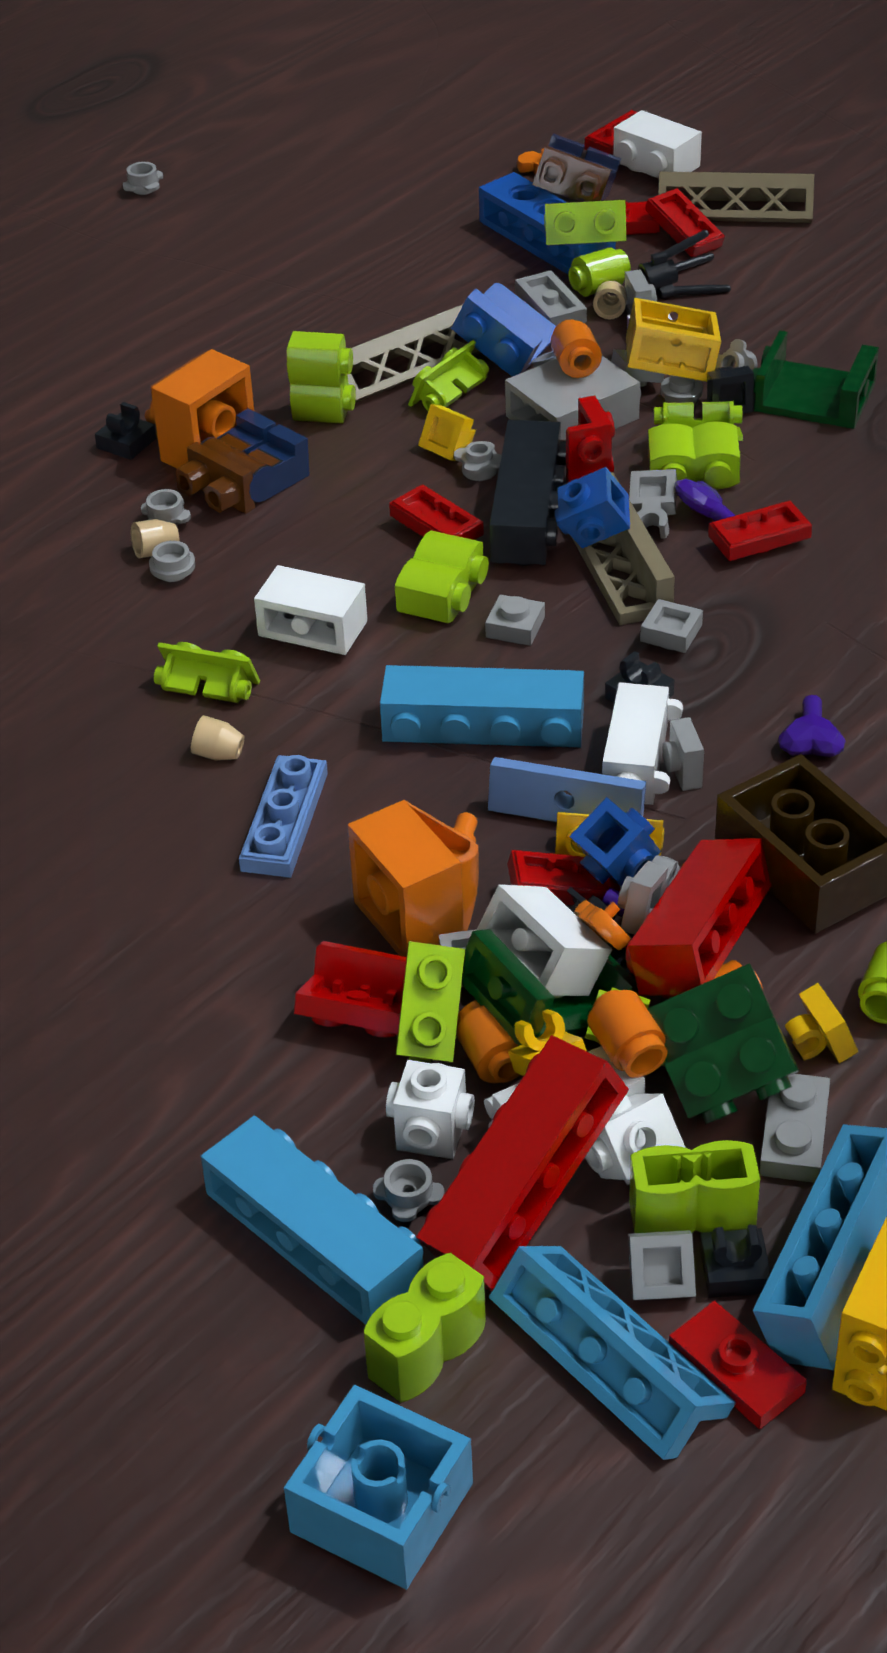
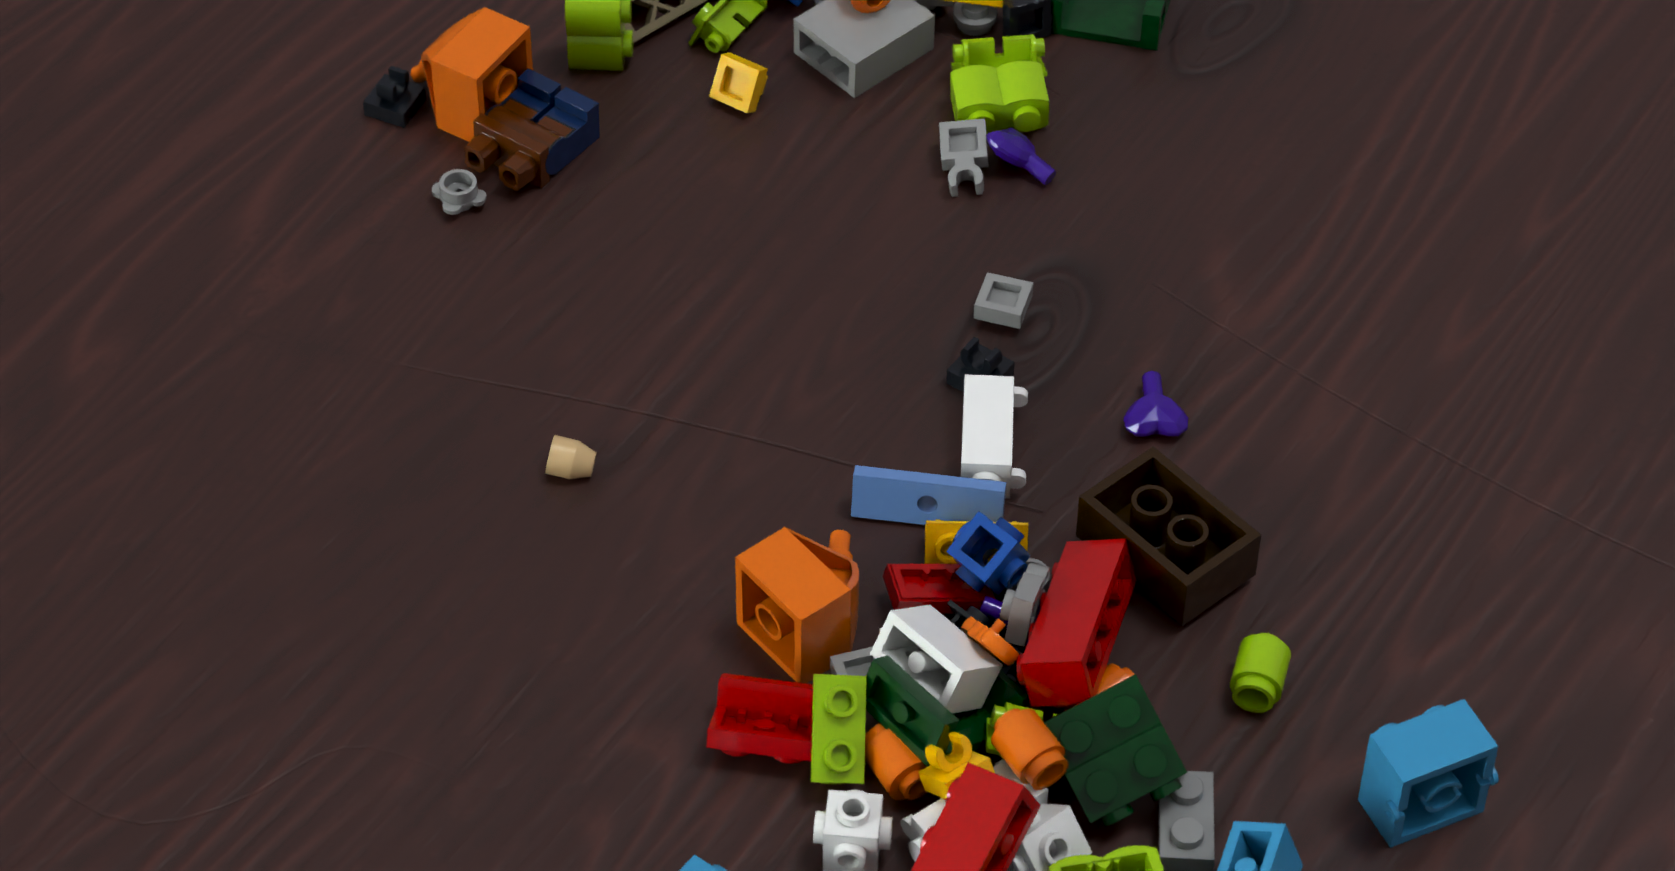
camera: 10 degrees left, 5 degrees up
(150, 533) = (453, 226): tan hose -> none
(171, 561) = (479, 254): light grey plate -> none
(226, 673) = (562, 381): lime hinge -> none
(283, 816) = (651, 537): medium blue tile -> none
(311, 609) = (635, 302): white brick -> none
(427, 511) = (745, 187): red plate -> none
(440, 577) = (763, 258): lime brick -> none
(478, 460) = (777, 112): light grey plate -> none
(482, 706) = (831, 405): dark azure brick -> none
(515, 619) = (844, 301): light grey plate -> none
(527, 492) = (836, 153): black brick -> none
(589, 441) = (896, 106): red bracket -> none
(593, 508) = (910, 175): blue brick -> none
(638, 556) = (959, 219): dark tan fence -> none
(684, 754) = (1036, 445): light grey plate -> none
(760, 530) = (1077, 183): red plate -> none
(820, 1027) = (1199, 723): yellow tile -> none

